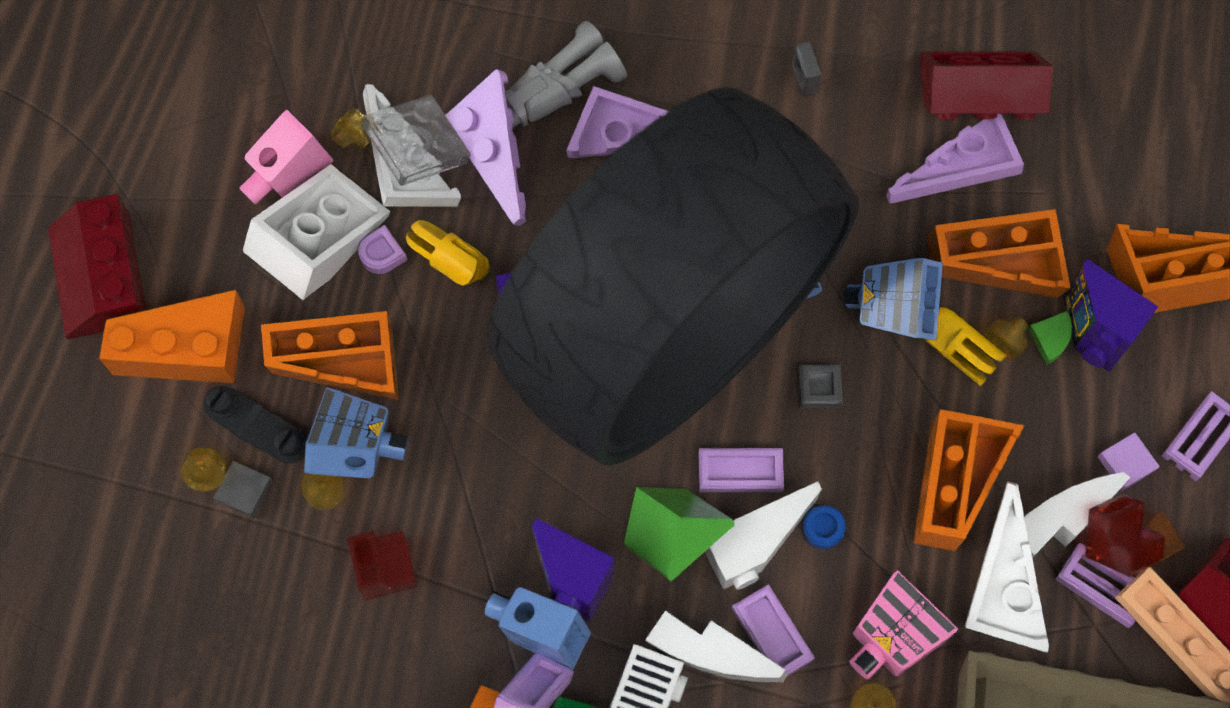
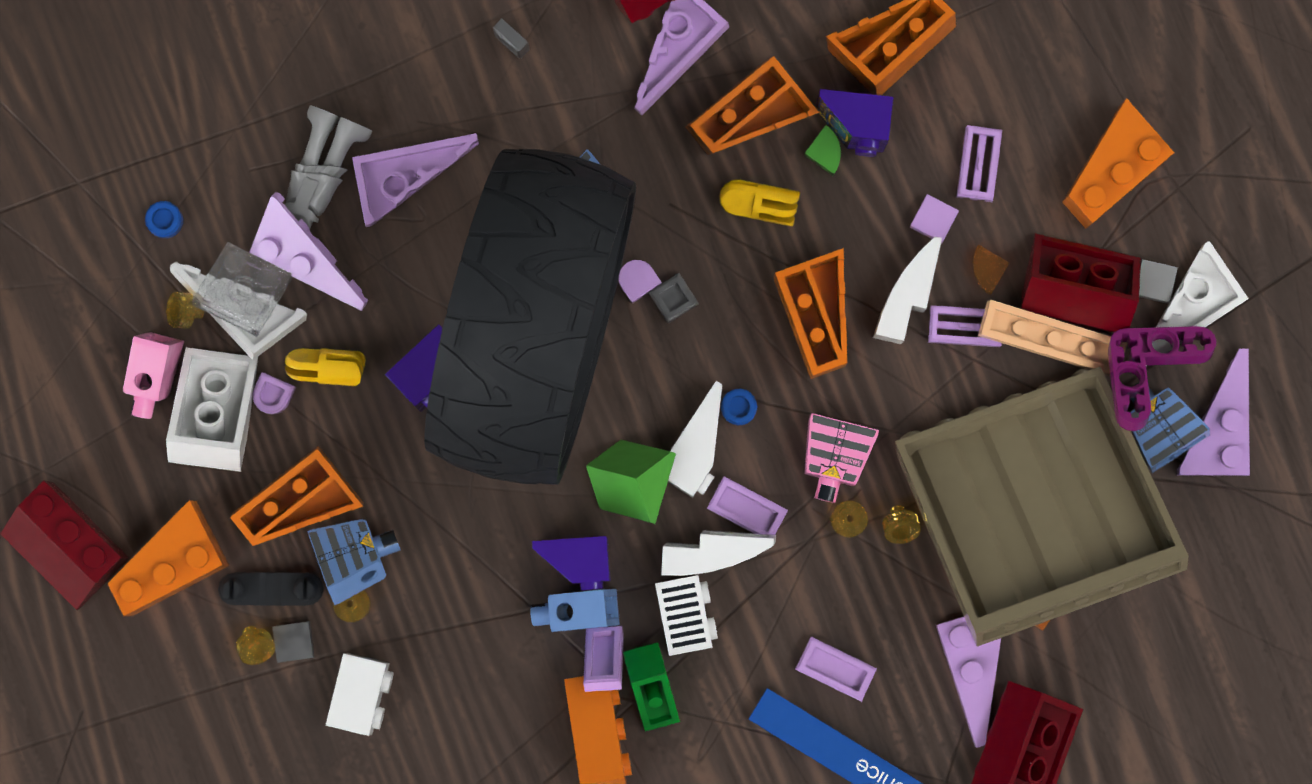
camera: 30 degrees left, 15 degrees up
(270, 576) = (359, 694): none -> white brick
(381, 564) = (434, 634): clear red piece -> none
(388, 48) = (164, 219): none -> blue tile
(741, 470) = (652, 400): lavender tile -> none
(794, 348) = (637, 279): none -> lavender tile
(899, 297) = (695, 198): medium blue torso -> none
(1007, 591) = (897, 376): white wing -> none
(1008, 336) = (793, 174): clear yellow tile -> none
(1118, 536) = (958, 289): clear red piece -> none

